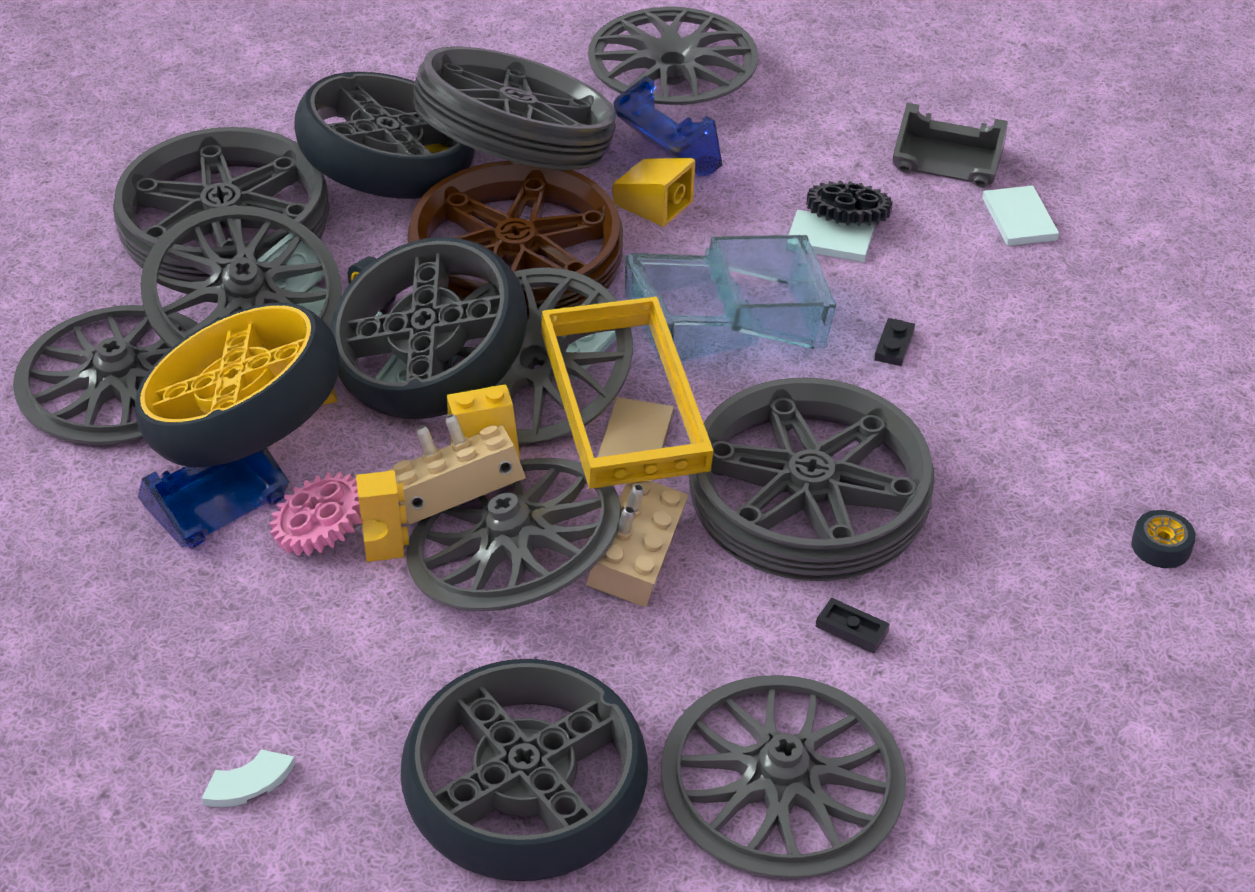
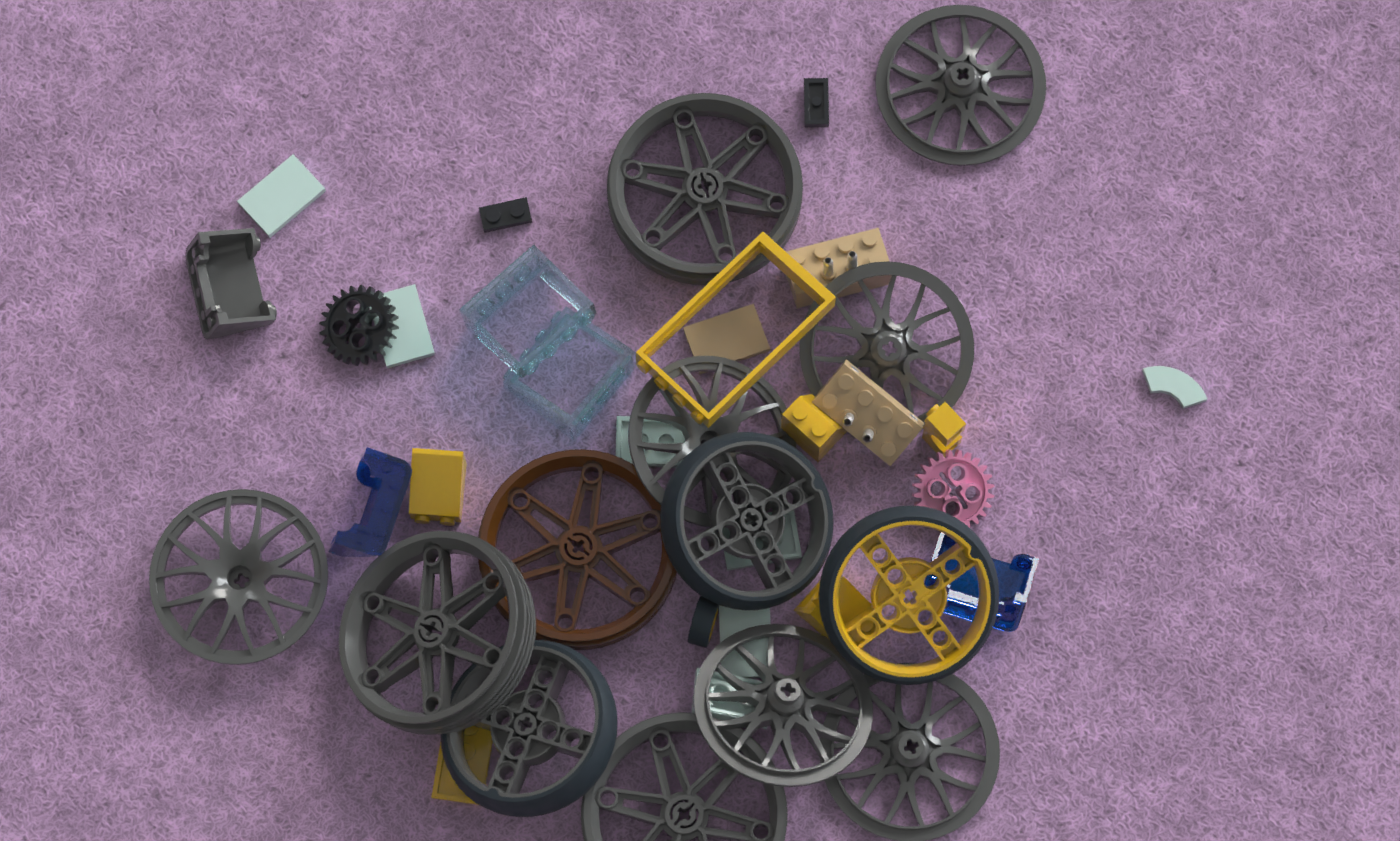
camera: 120 degrees left, 30 degrees up
(519, 761) = (1090, 159): dark grey wheel -> none

